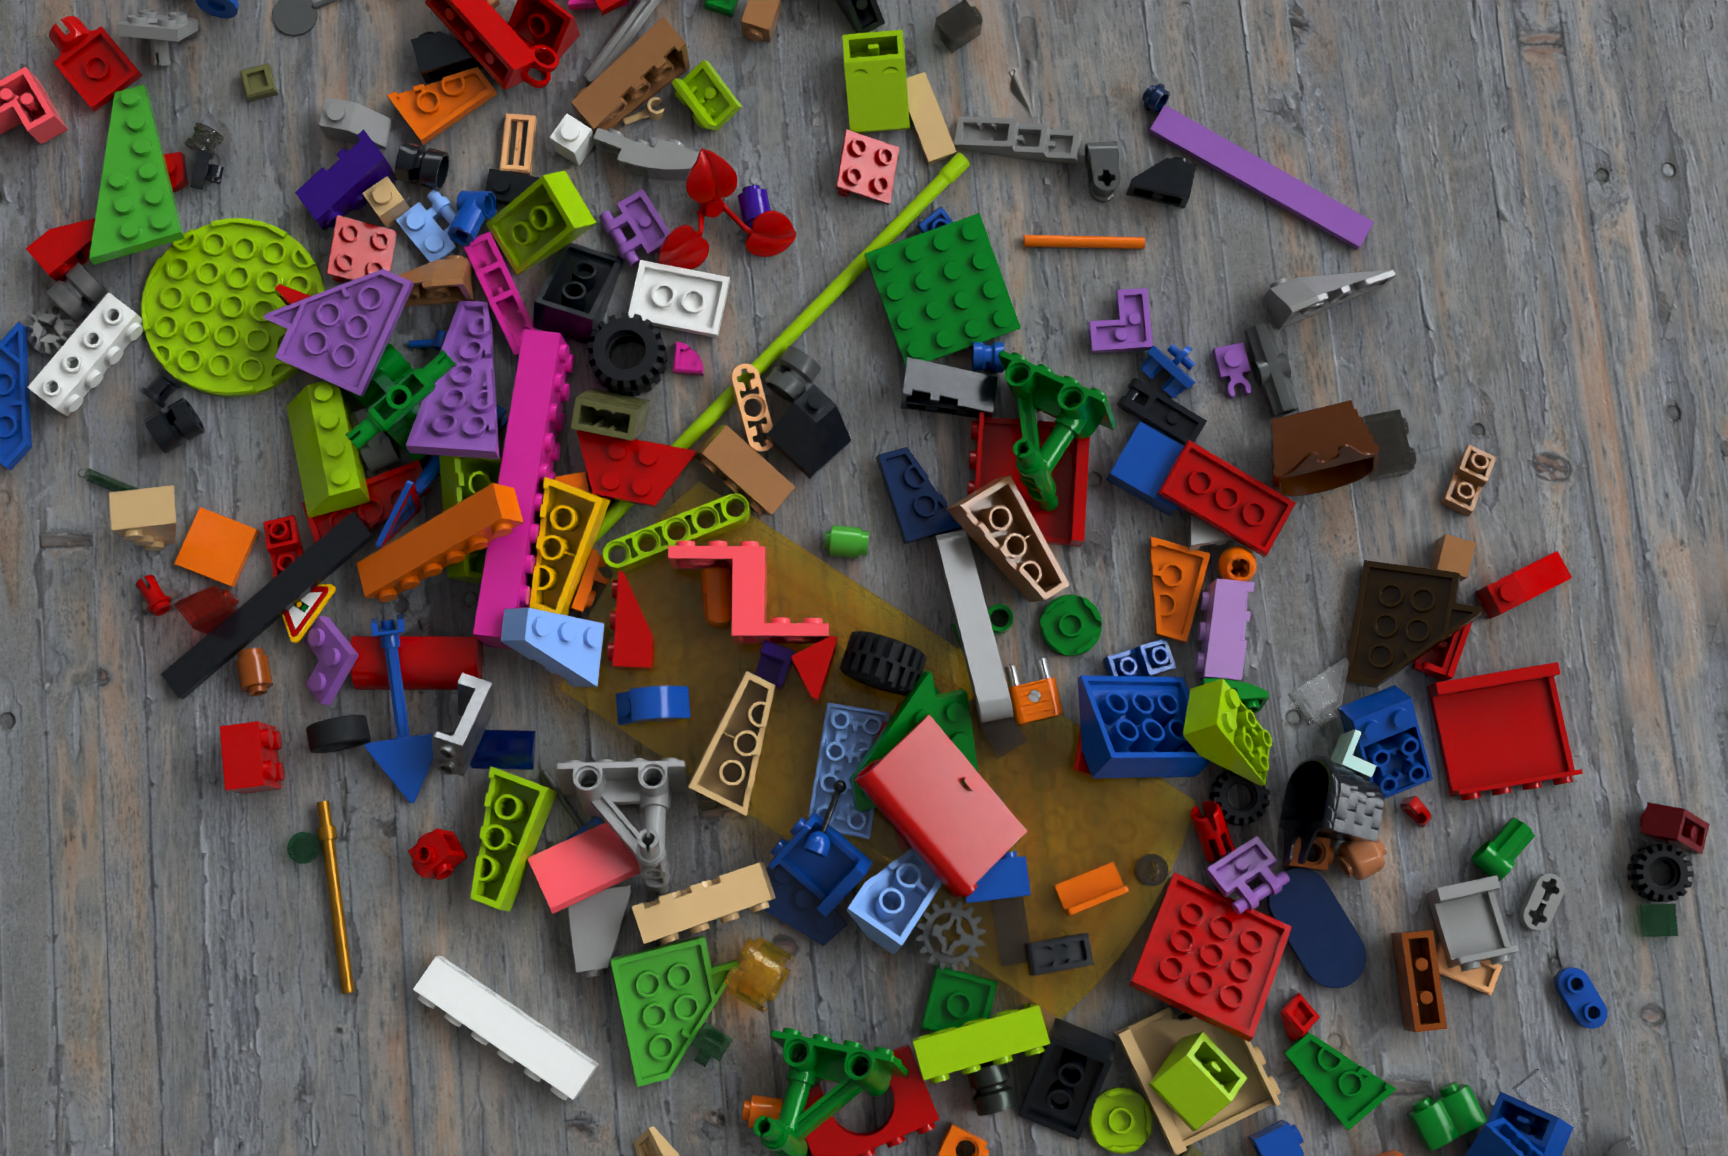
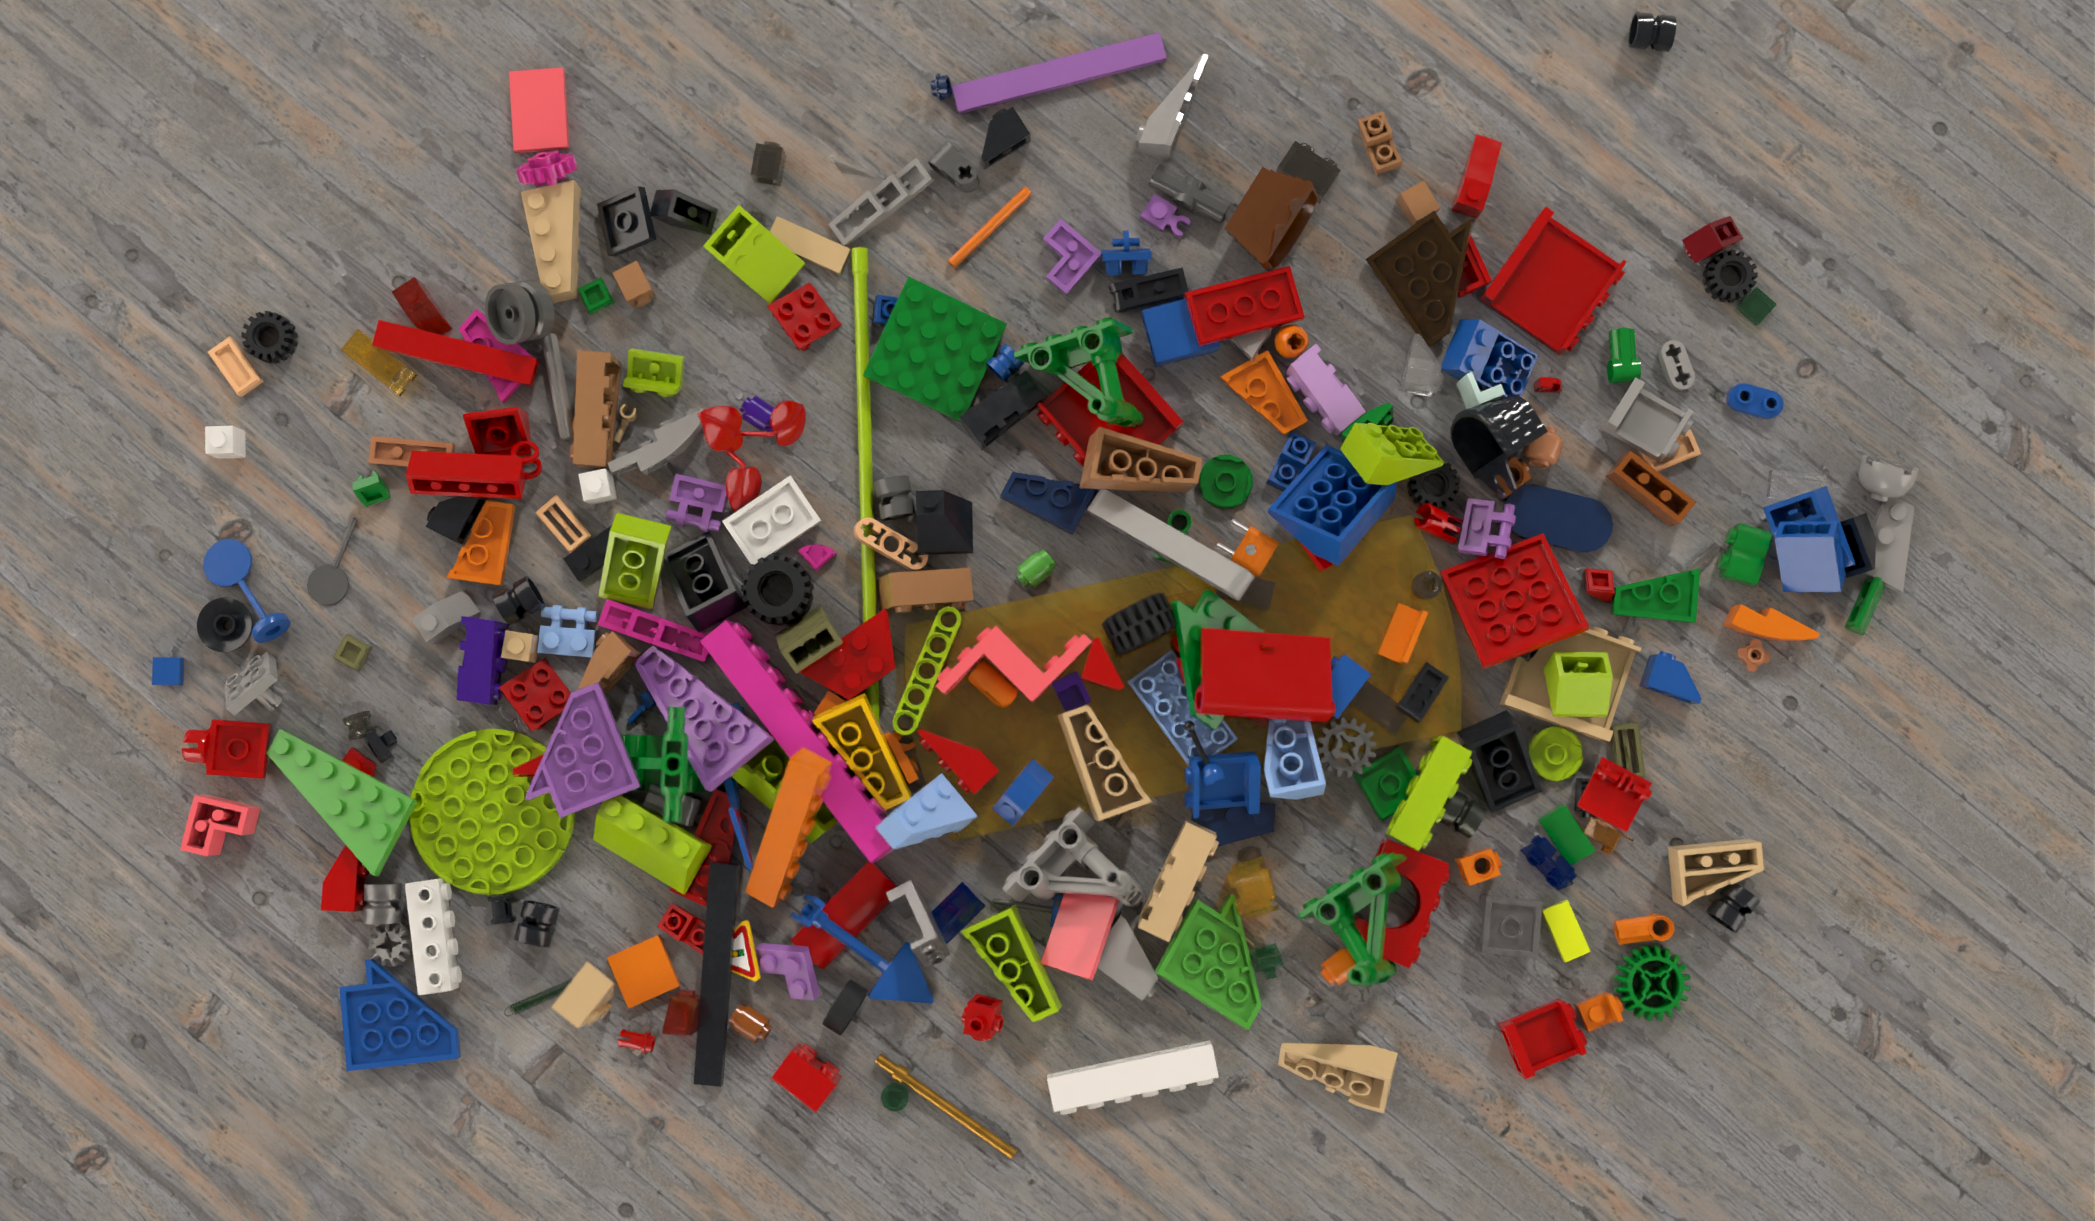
camera: 40 degrees left, 5 degrees up
(472, 210) = (583, 598): blue piece -> none

